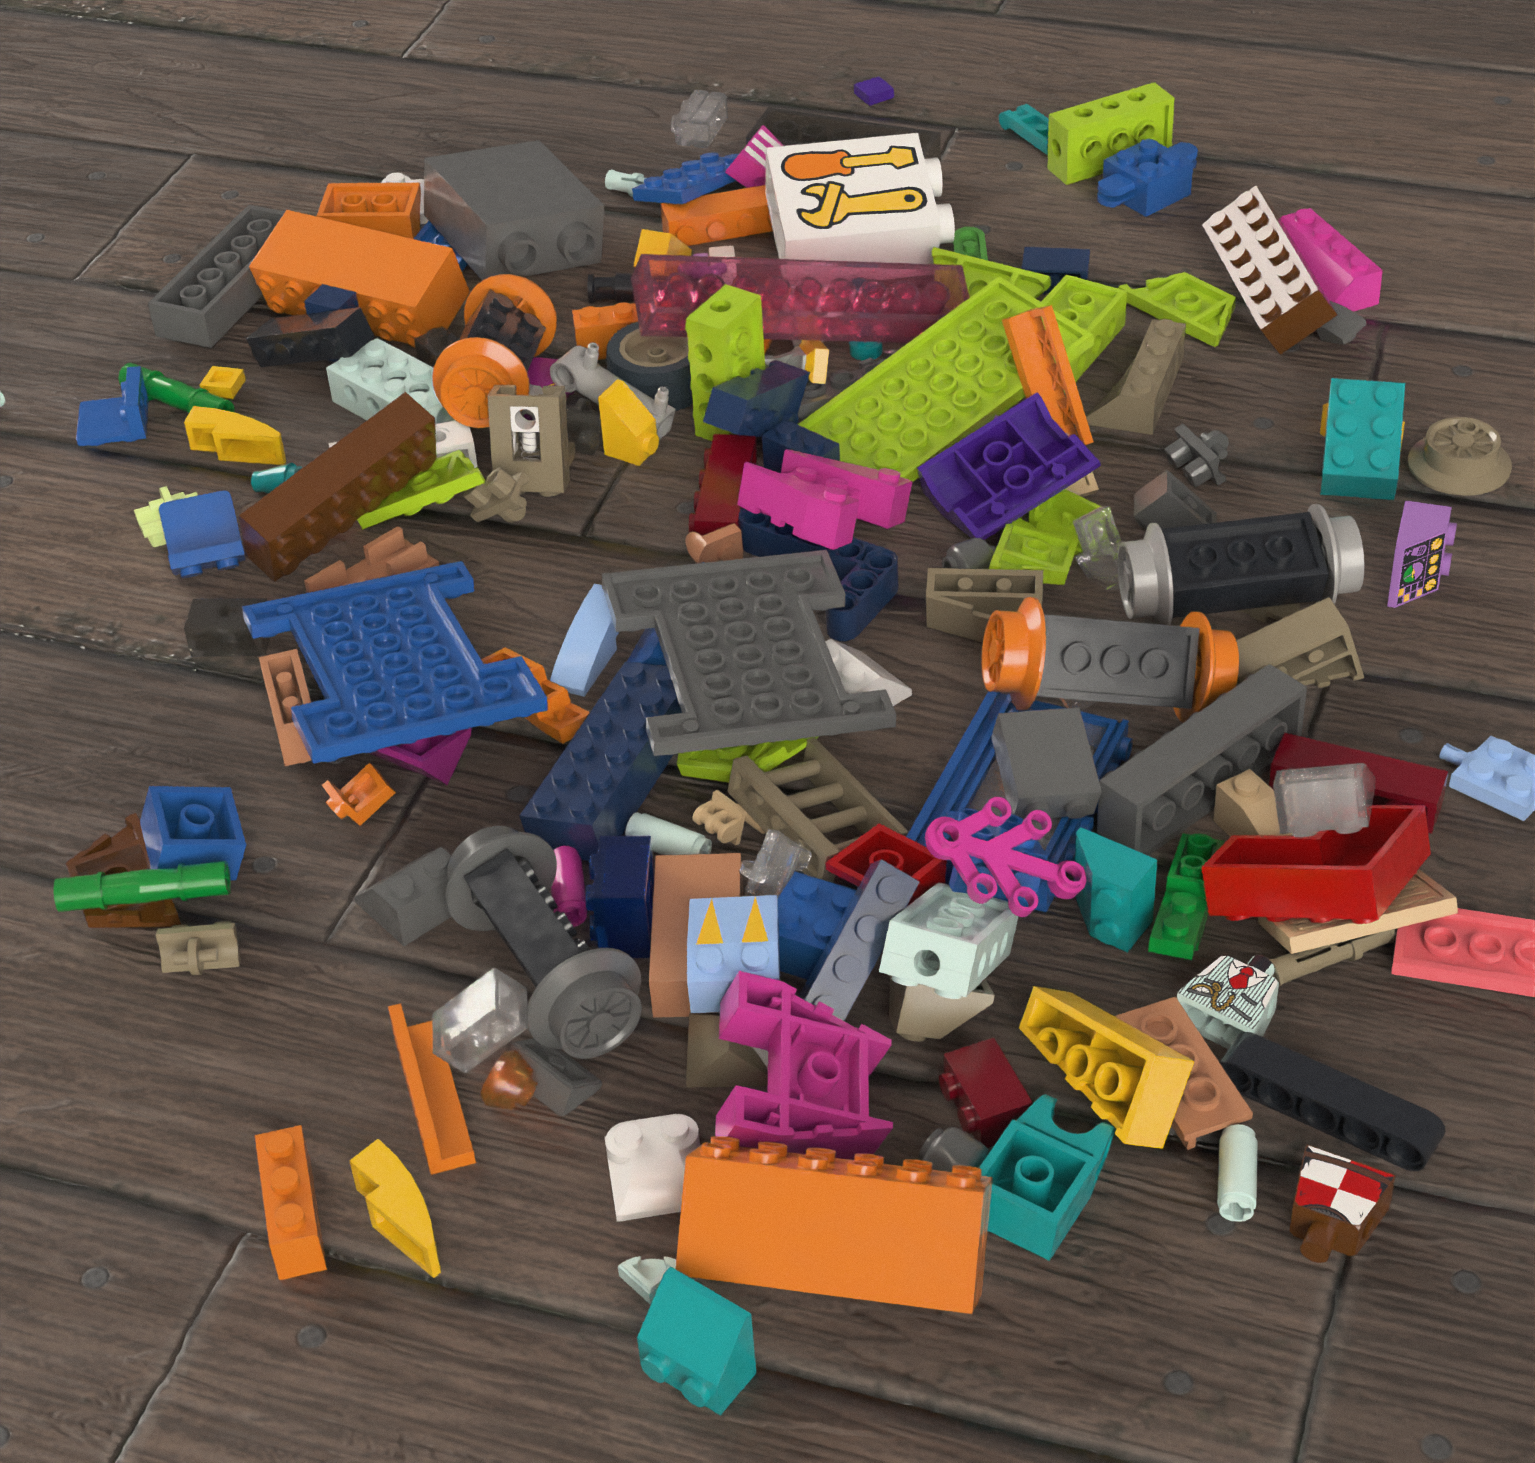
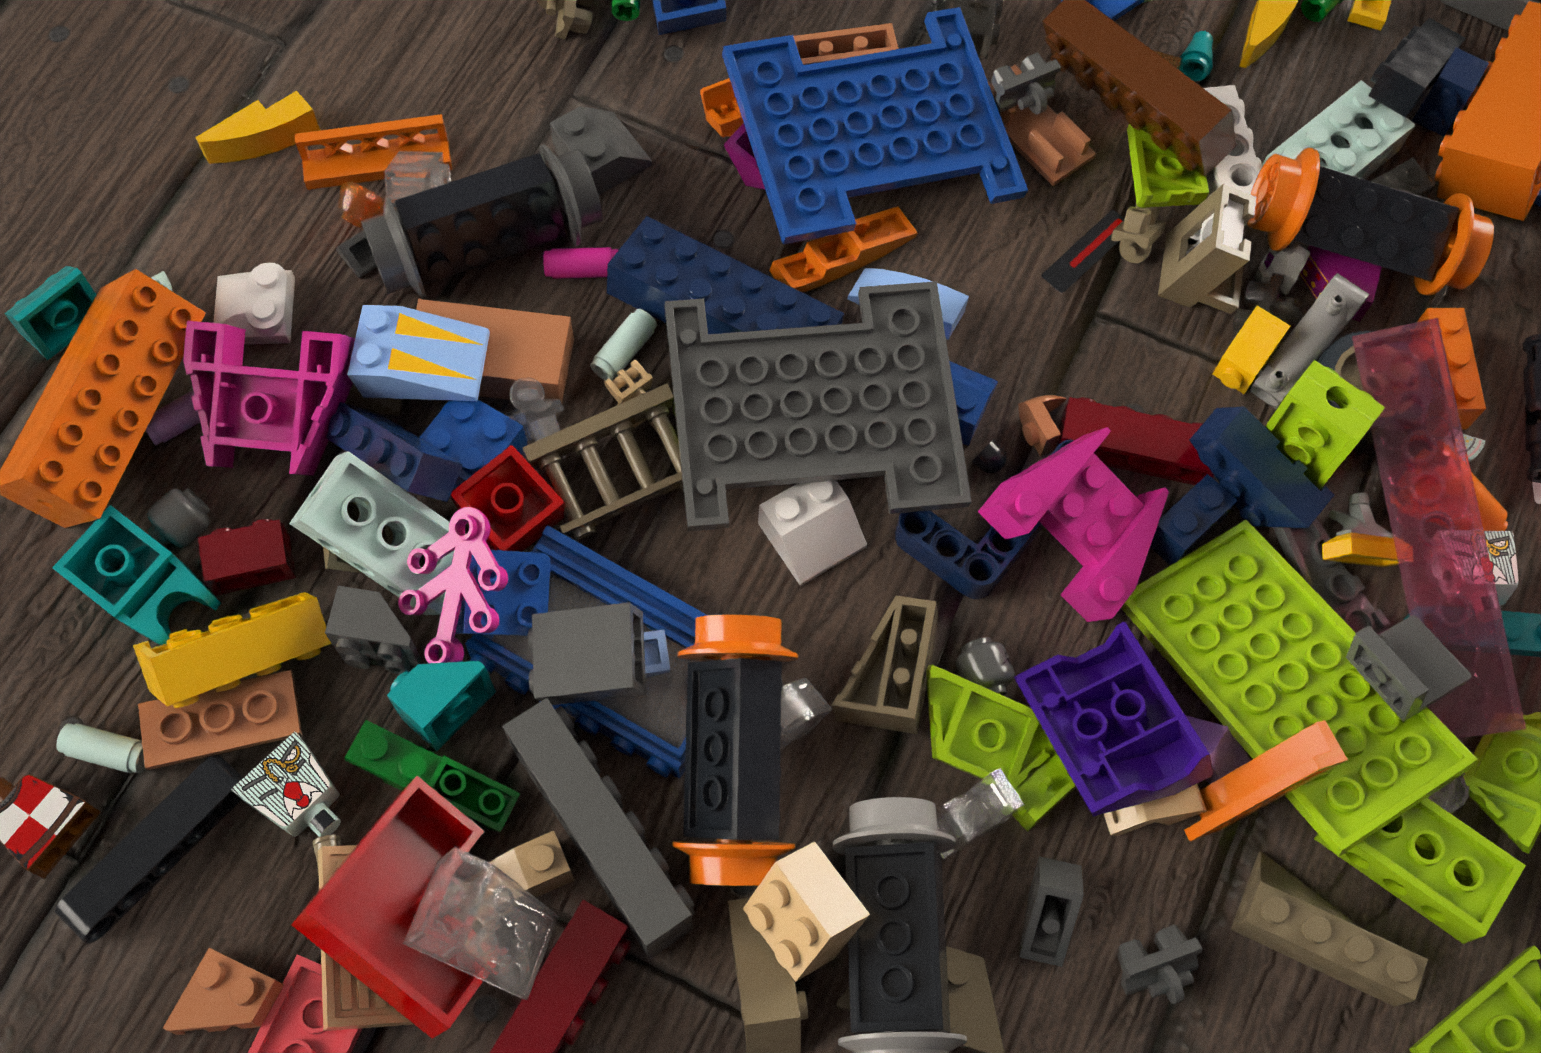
camera: 90 degrees right, 25 degrees up
(290, 1203) = (283, 61): orange brick -> none
(341, 557) = (1028, 88): none -> dark grey hips
(512, 545) = (1083, 253): none -> black sticker
(622, 894) = (531, 282): clear blue brick -> none
(932, 309) = (1407, 666): none -> dark grey bracket
(1054, 945) = (369, 632): none -> dark grey slope
(1244, 593) = (805, 911): none -> tan brick
(1453, 1013) = (223, 997): none -> nougat wing

